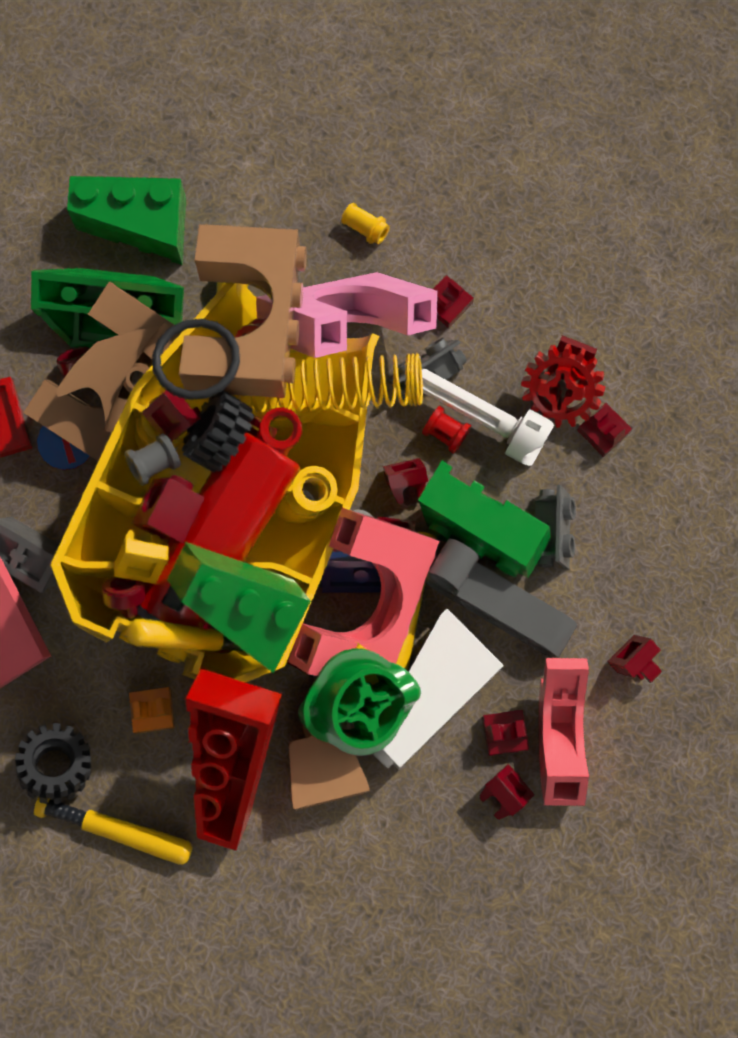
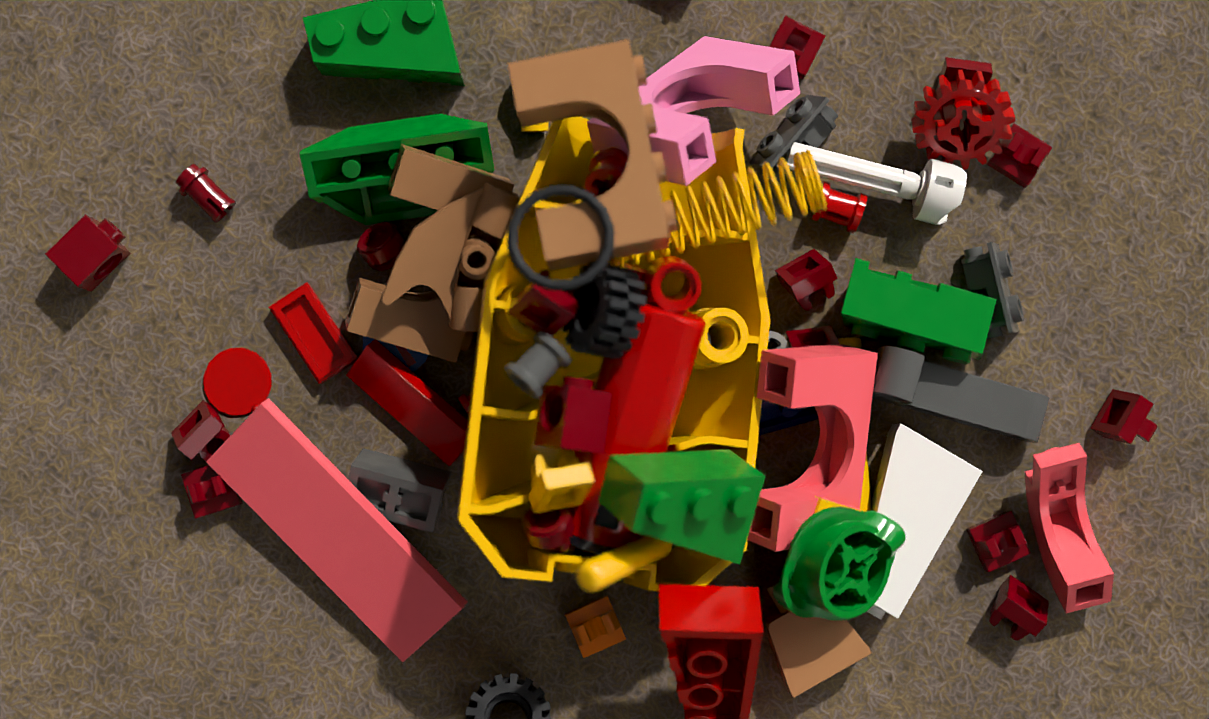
camera: 20 degrees left, 10 degrees up
(52, 477) = (410, 401): none -> red tile

